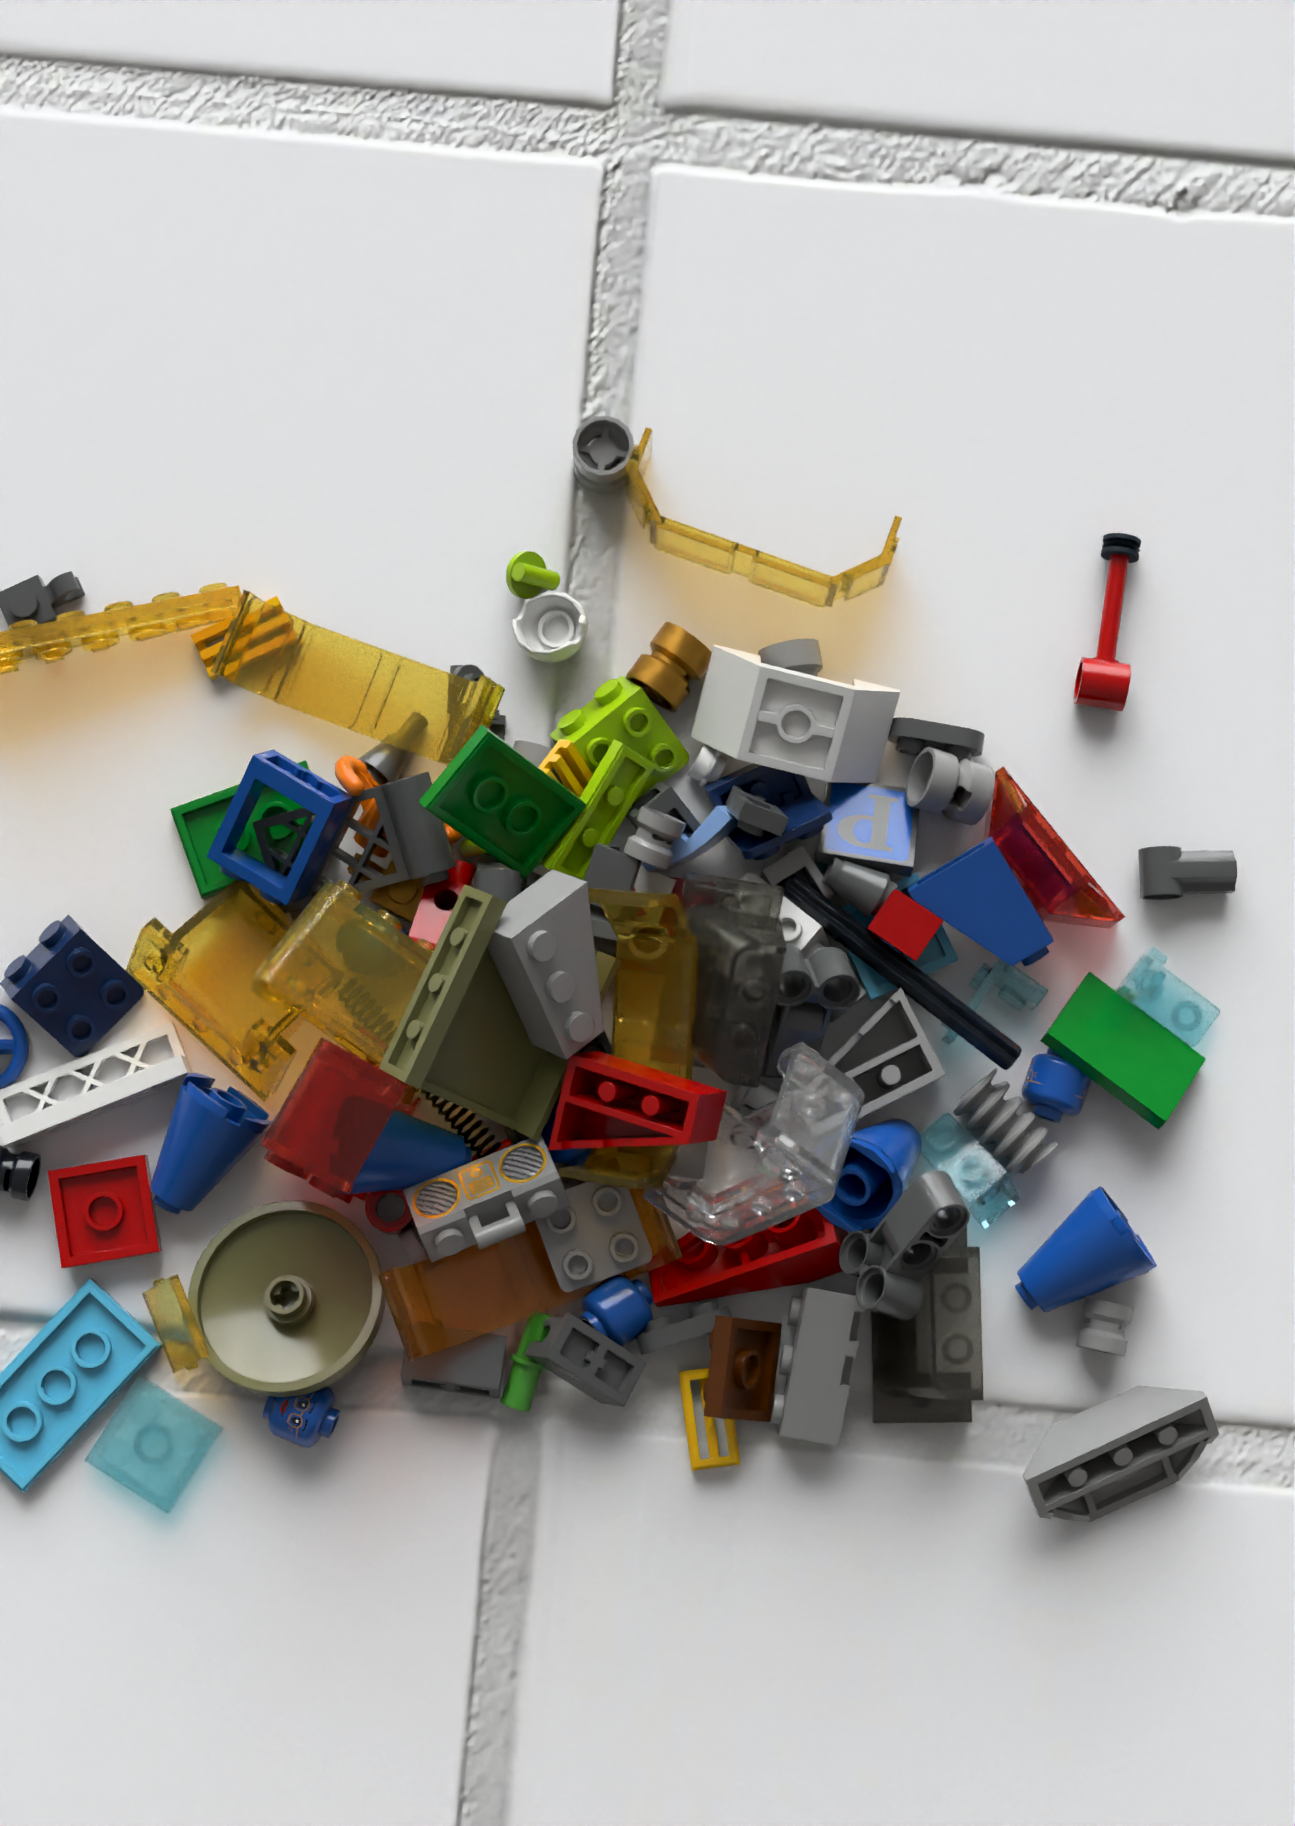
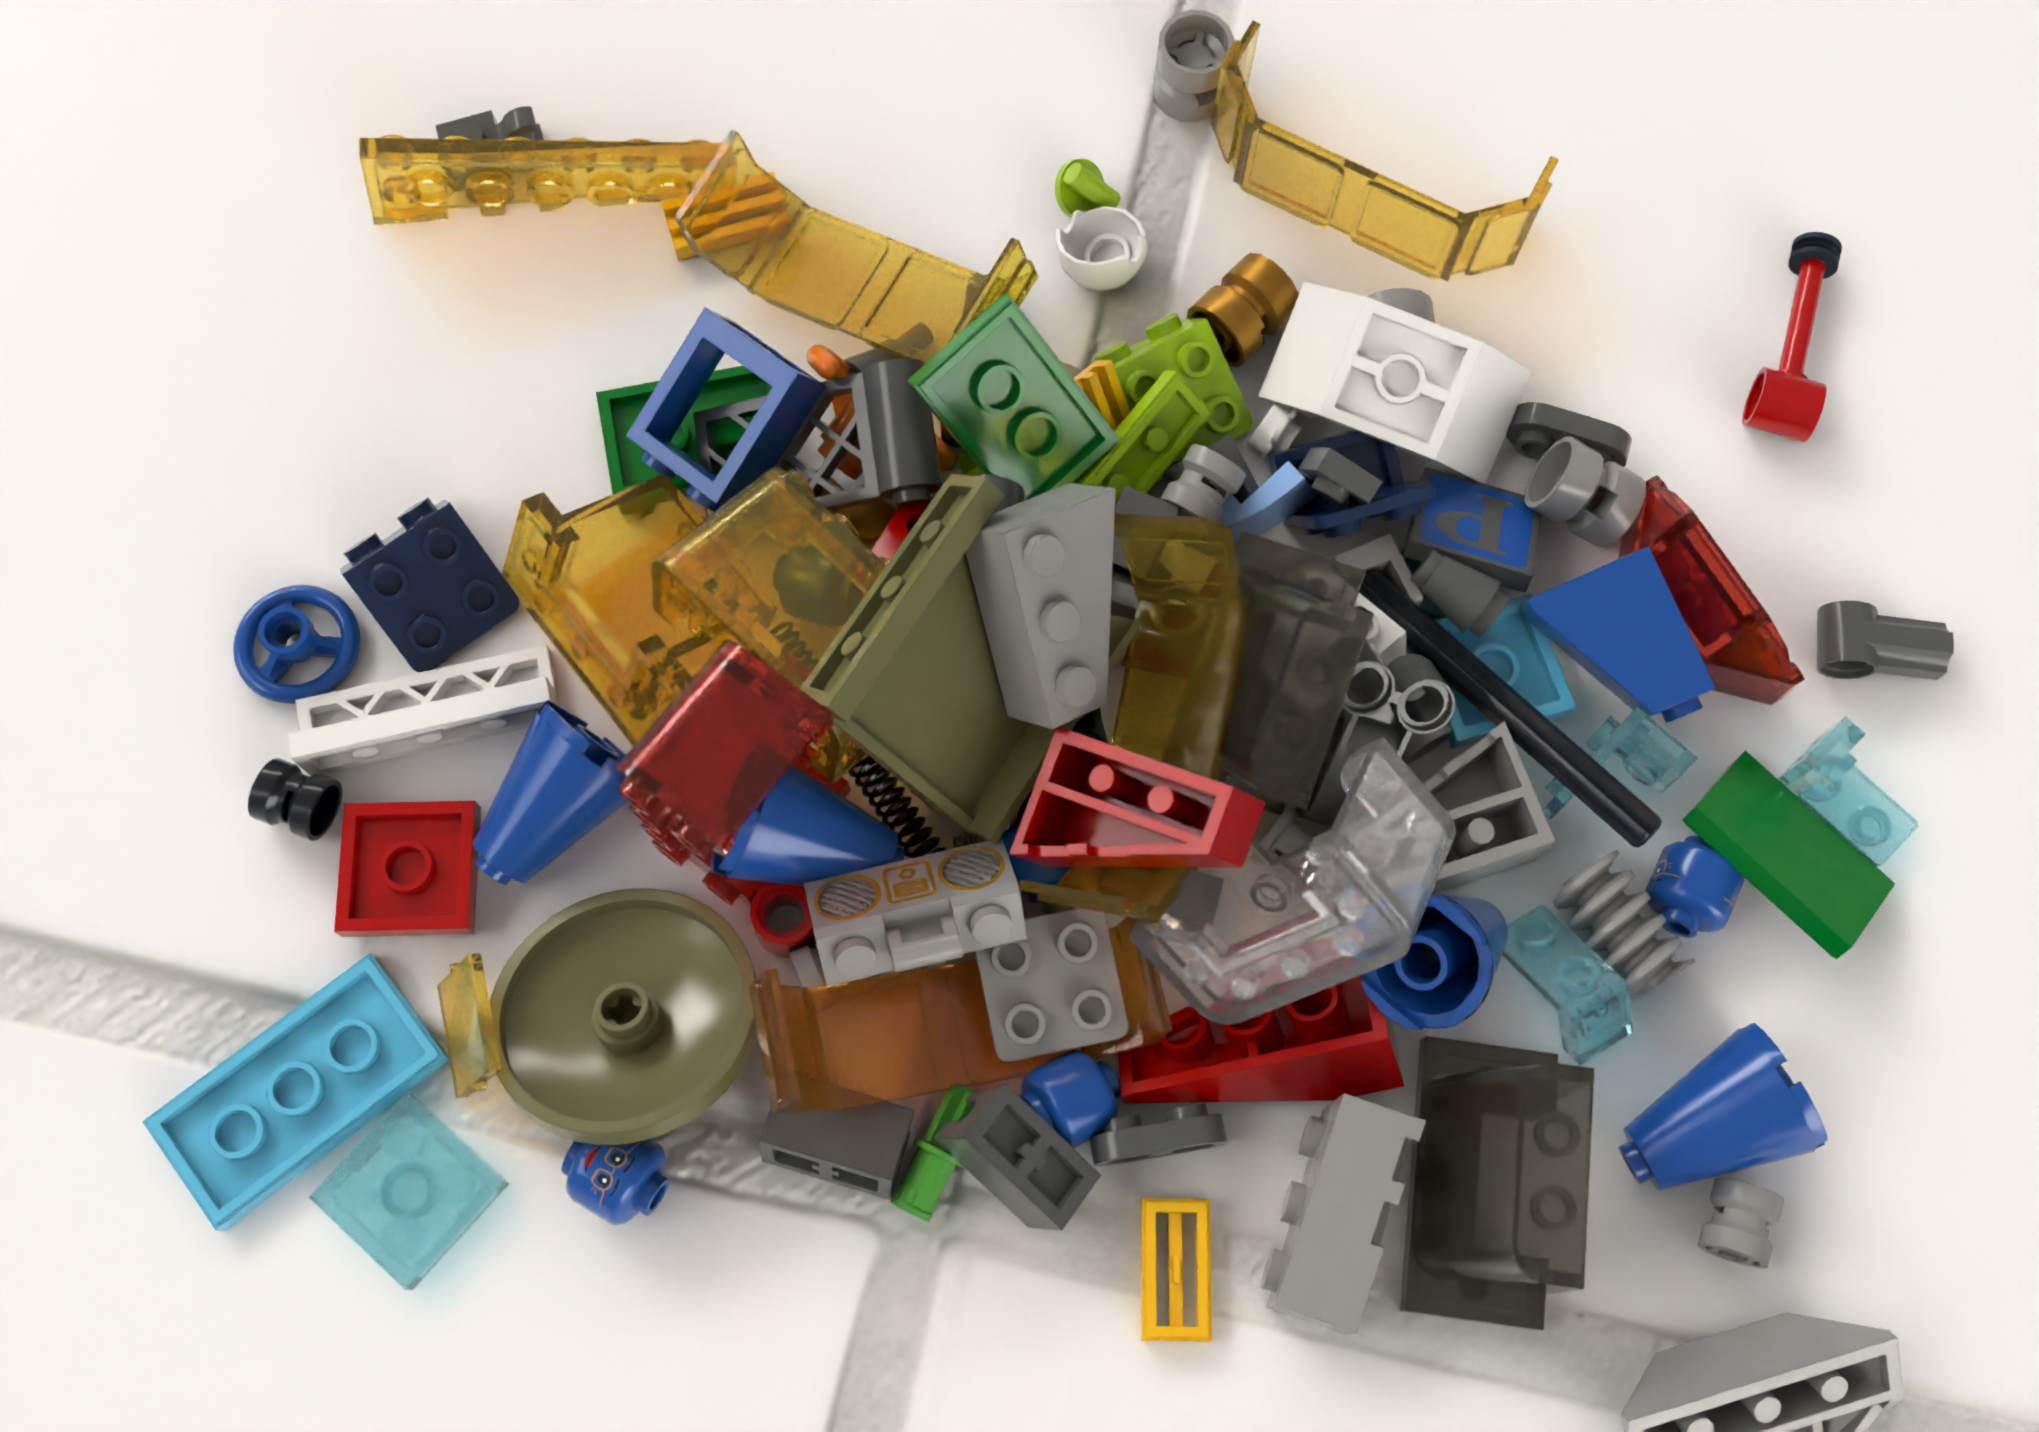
camera: 10 degrees right, 10 degrees down
(742, 1369) = (1232, 1202): reddish brown plate -> none
(905, 924) = (1517, 643): red panel -> none
(905, 1246) = (1491, 1051): dark grey piece -> none

